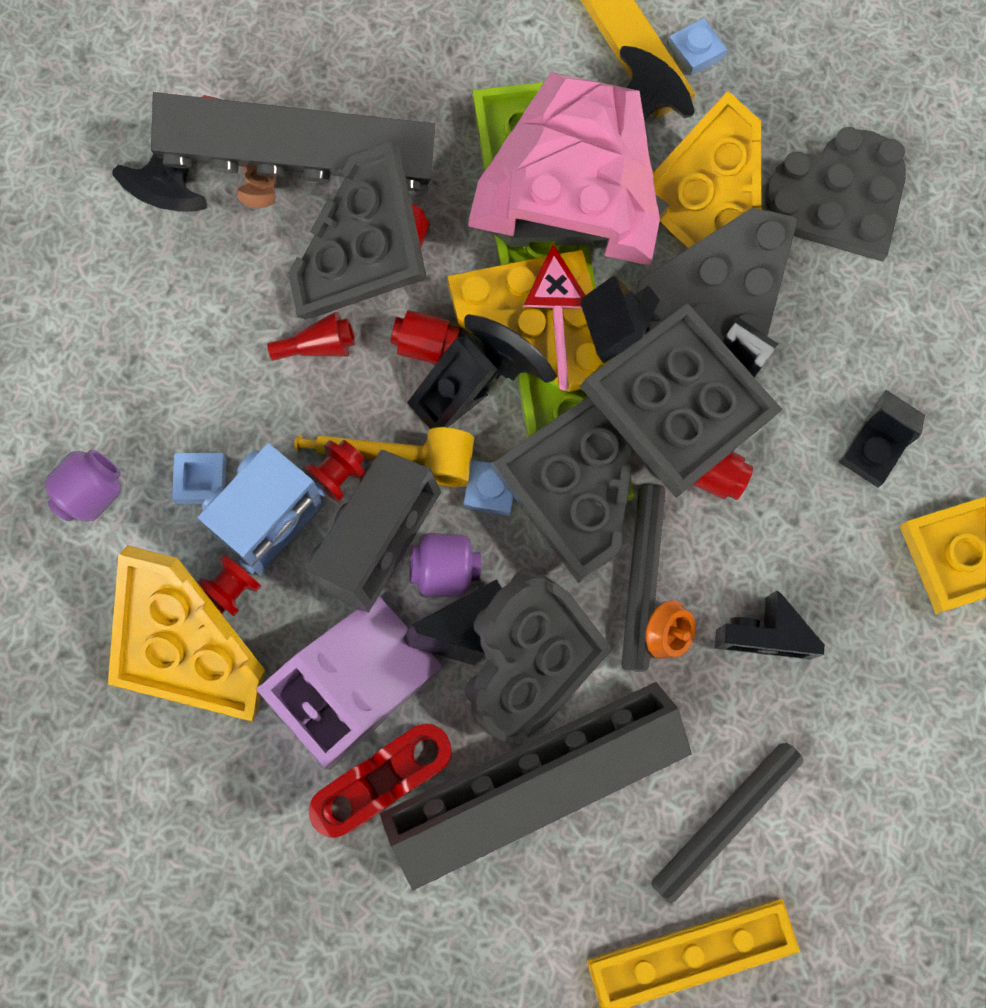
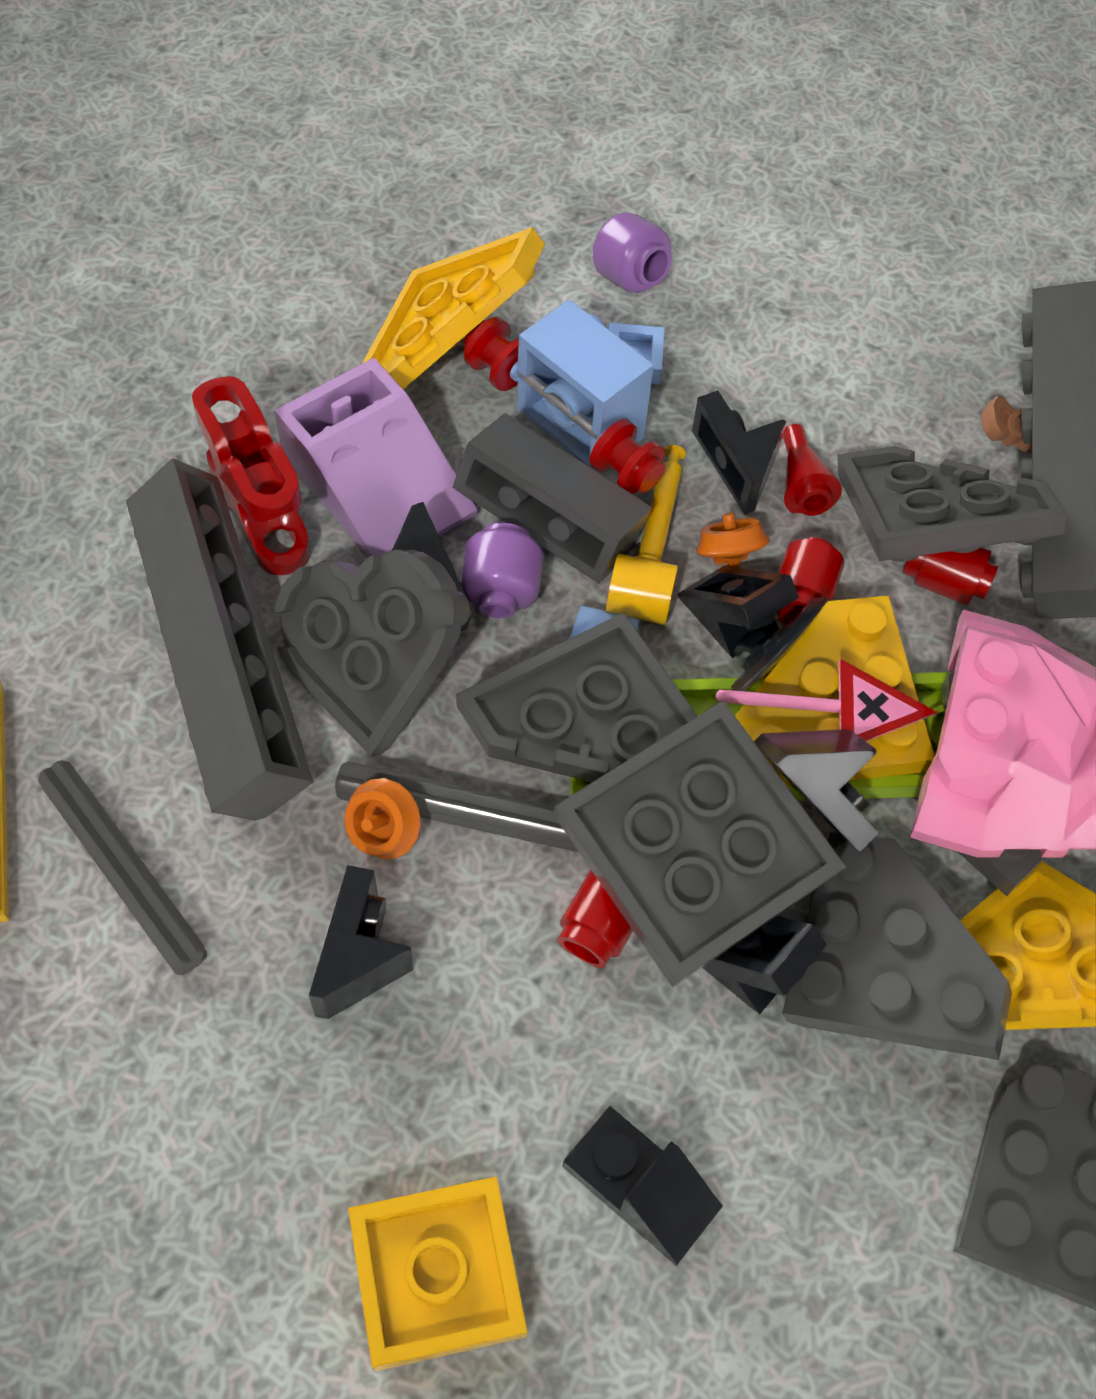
camera: 100 degrees right, 15 degrees down
(160, 186) = (1003, 344): black piece -> none
(316, 385) = (738, 456): none -> black slope
(393, 393) = (731, 540): none -> orange hat

